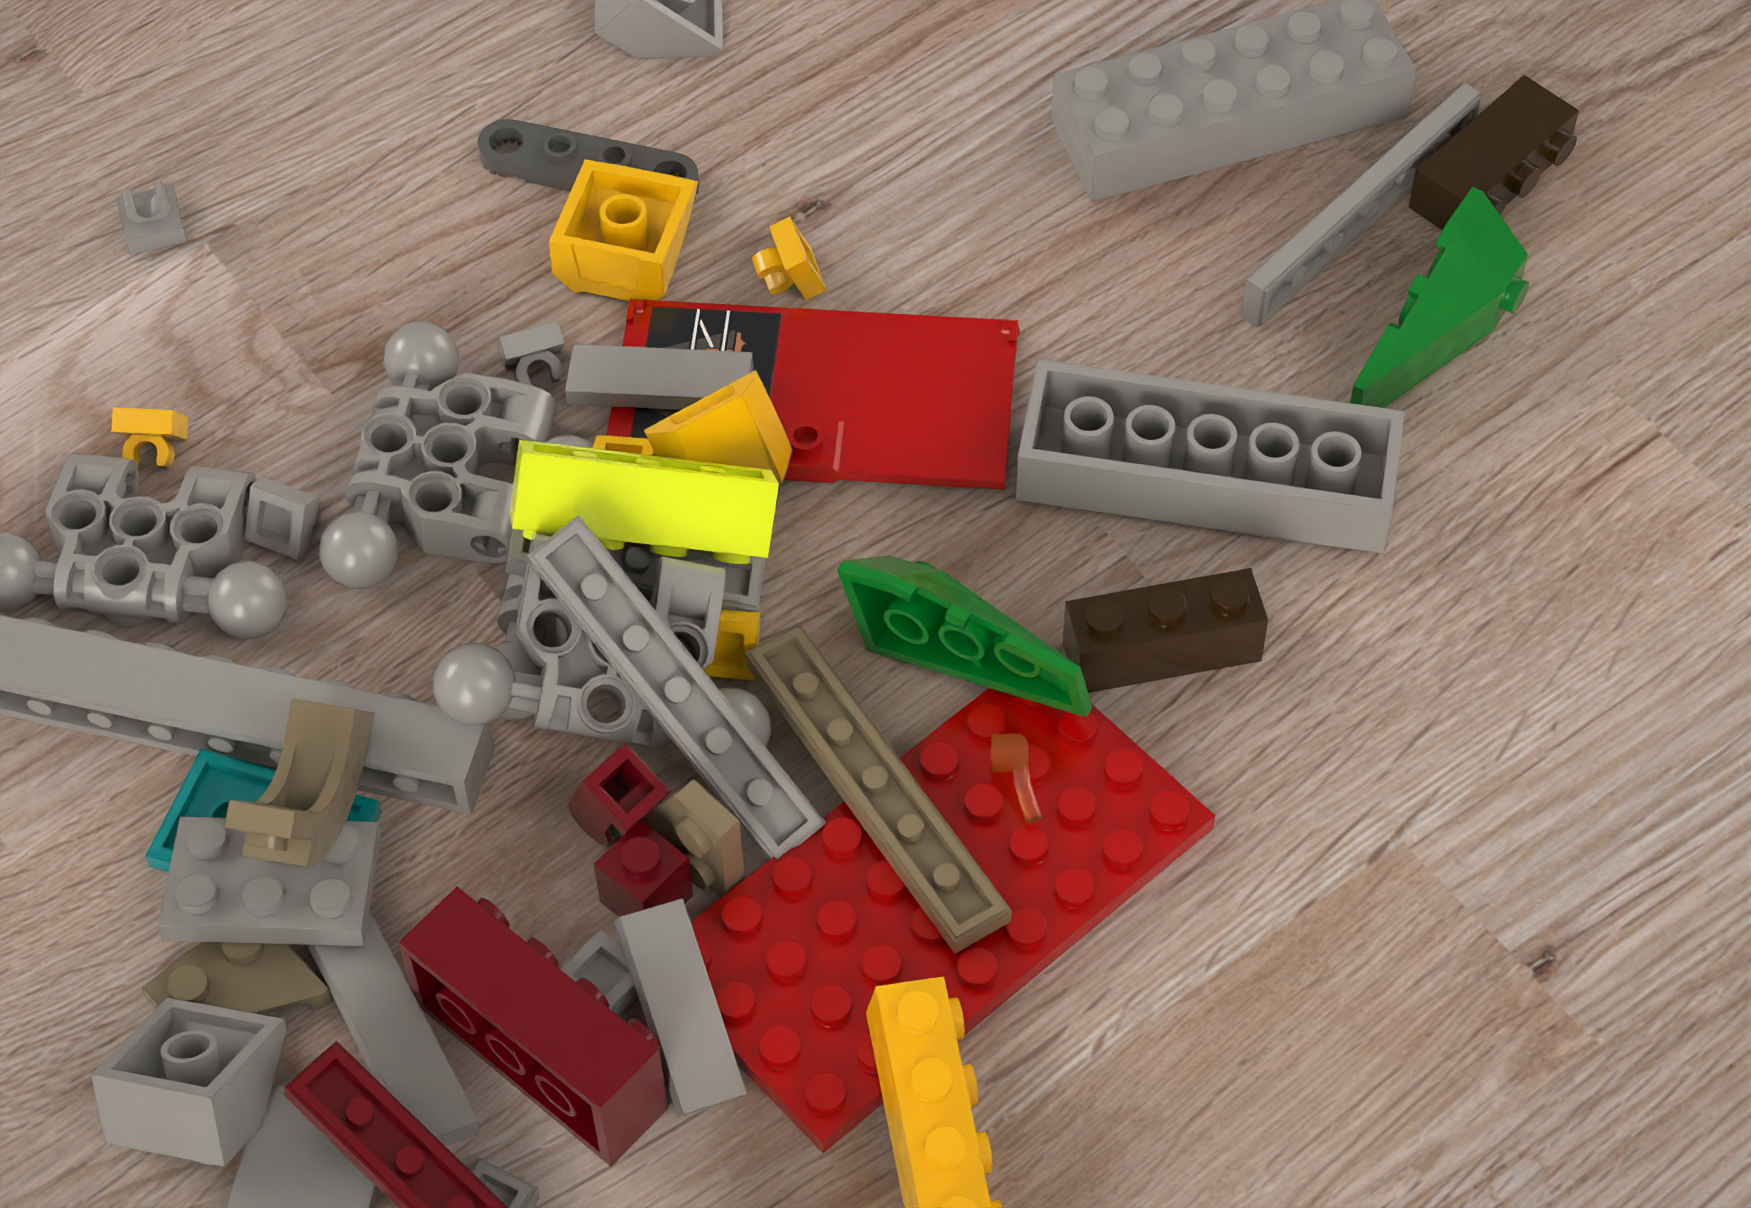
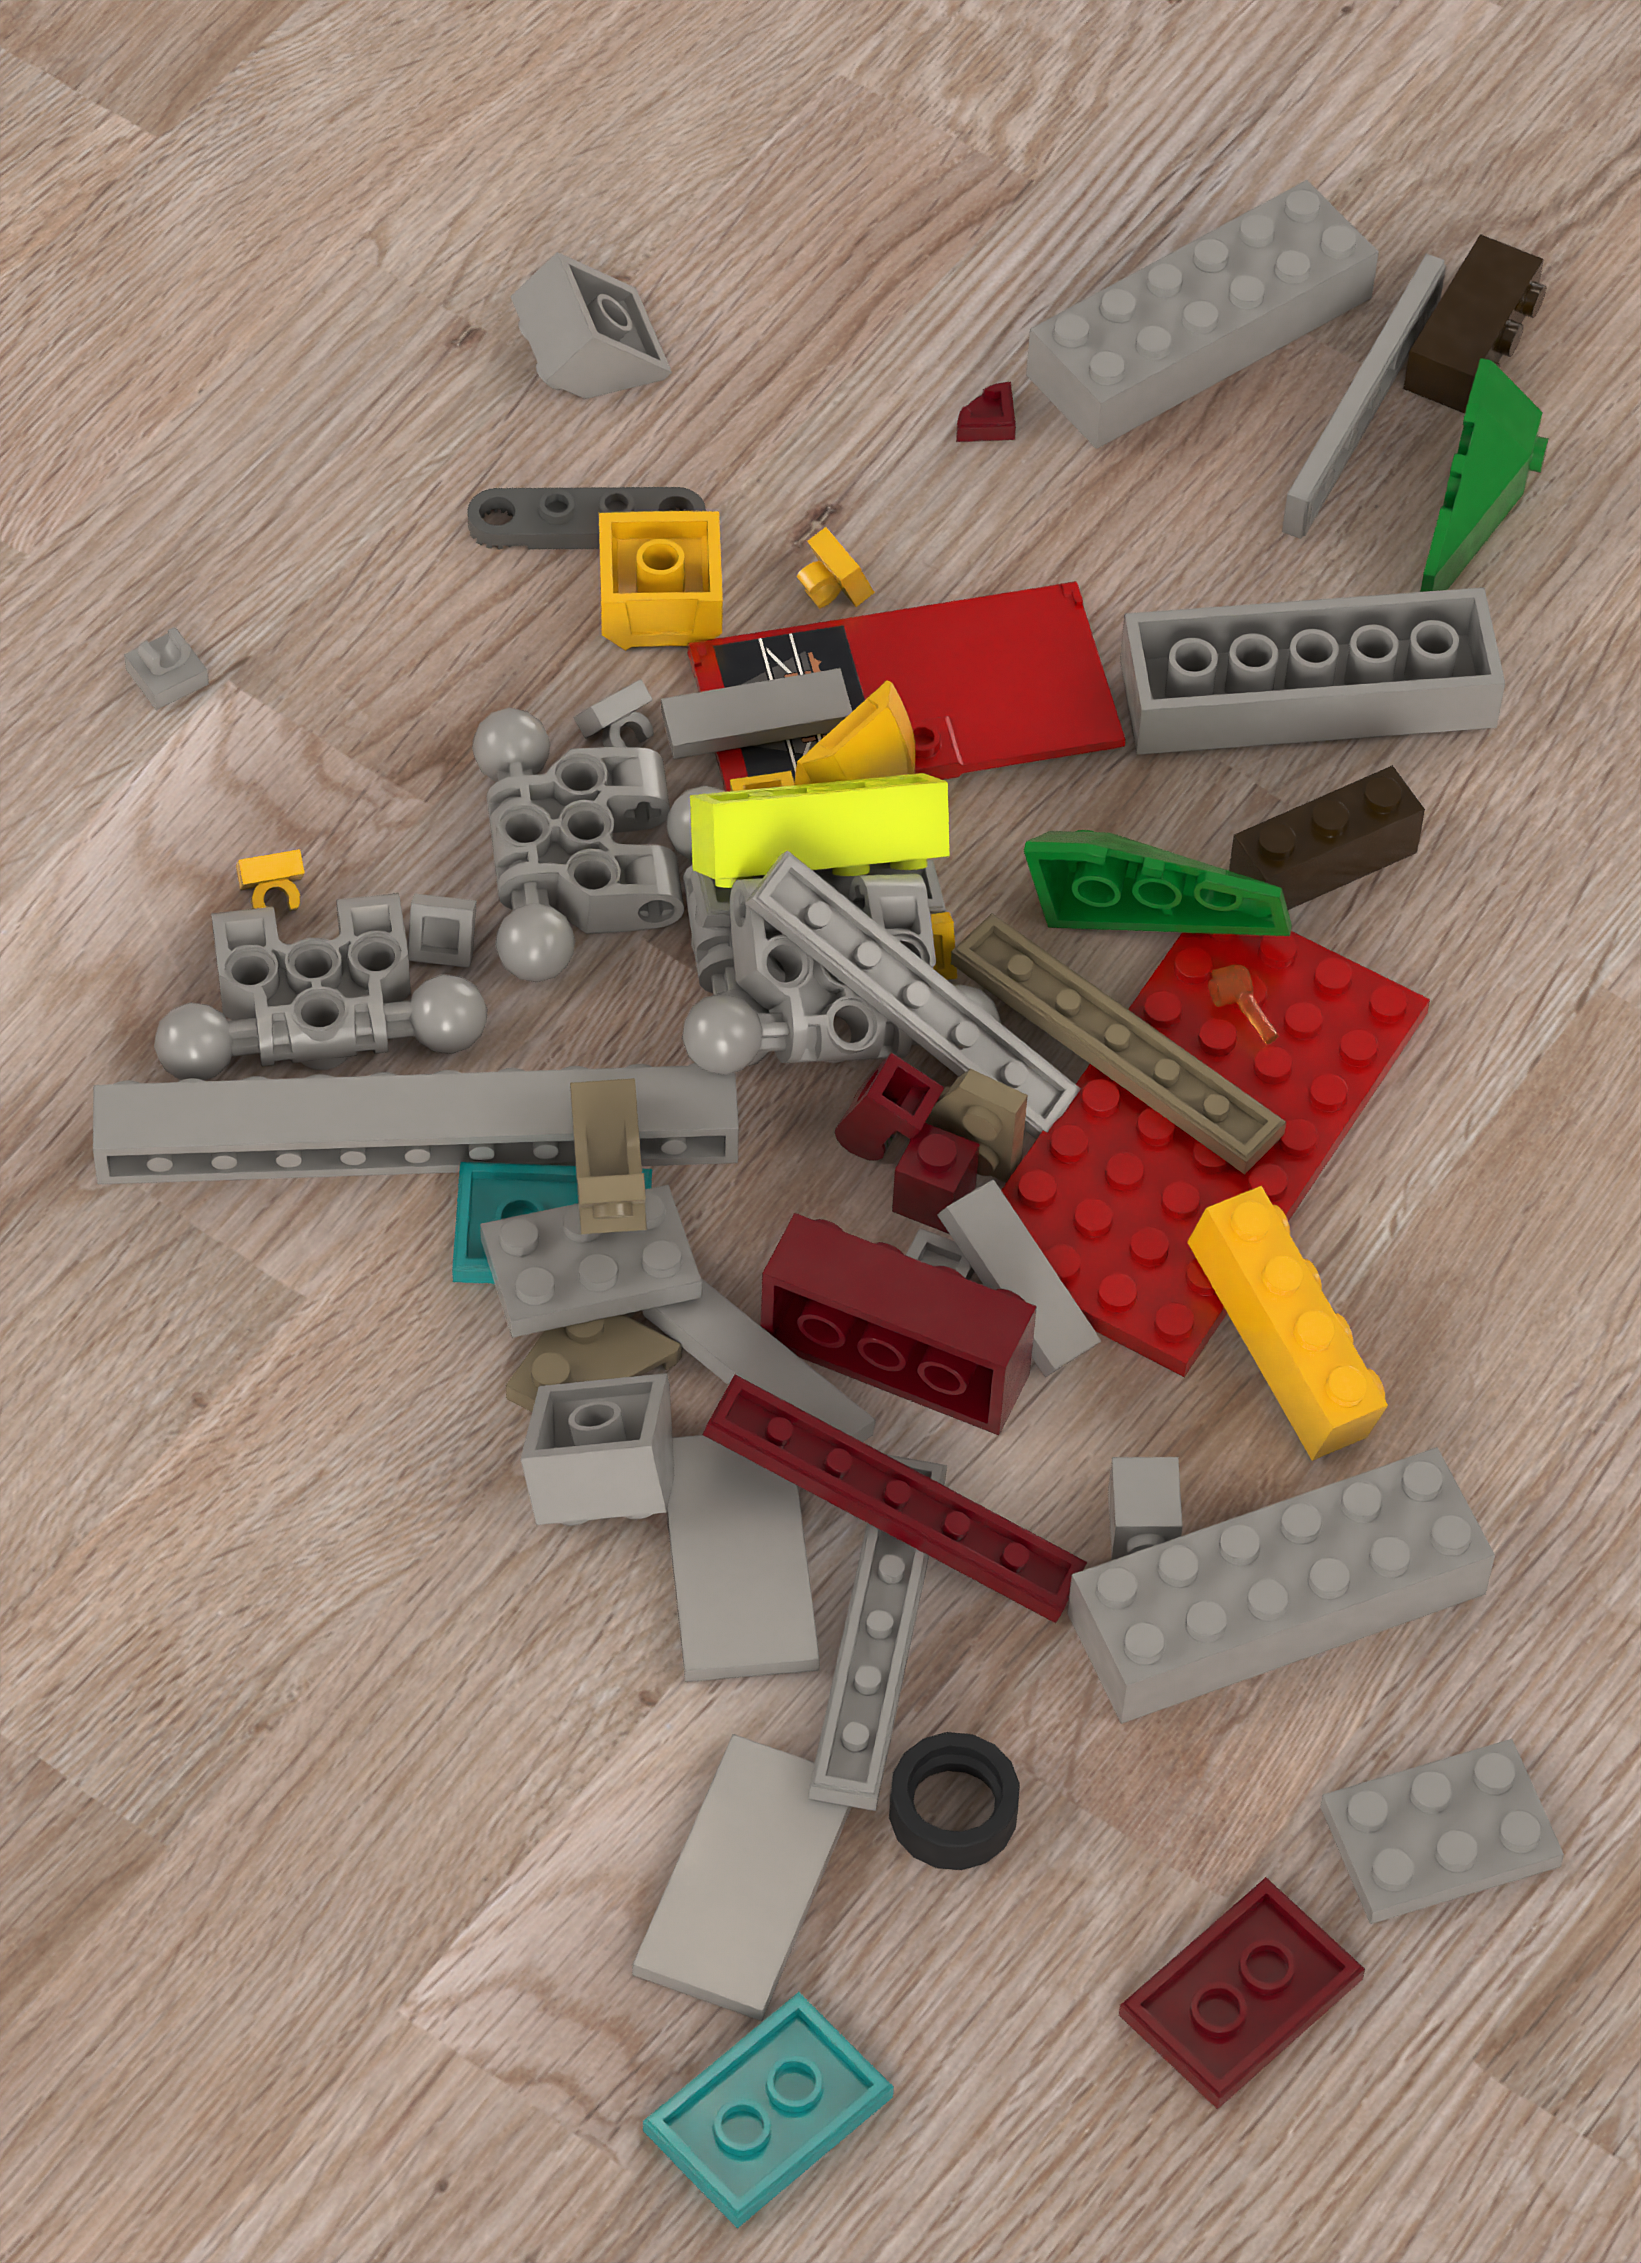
camera: 20 degrees left, 0 degrees up
(998, 150) = (988, 416): none -> dark red tile

